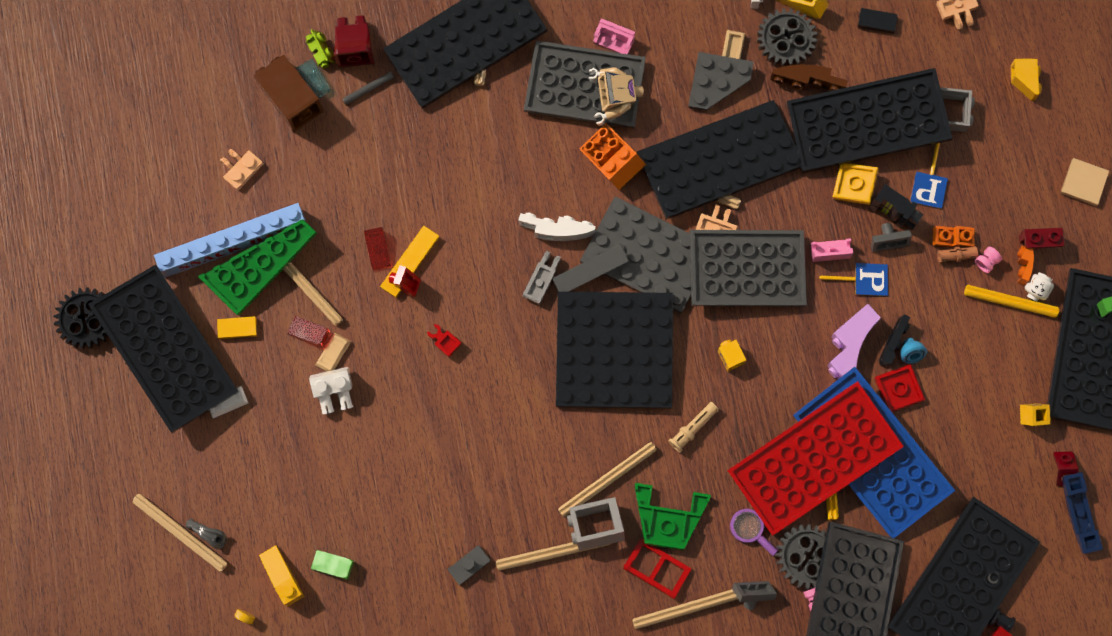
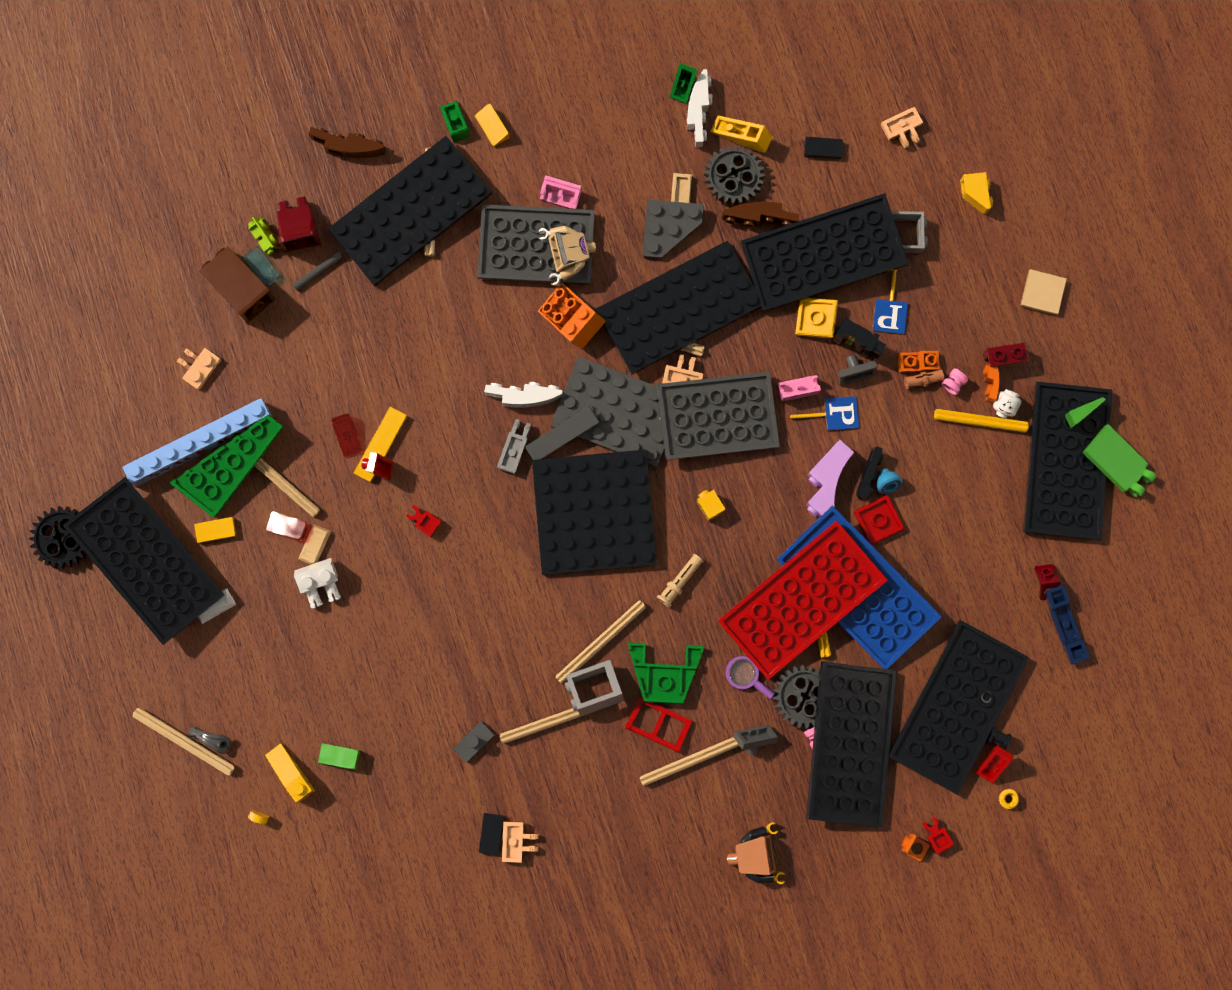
camera: 10 degrees left, 5 degrees up
(1035, 414) = (1013, 532): yellow brick -> none

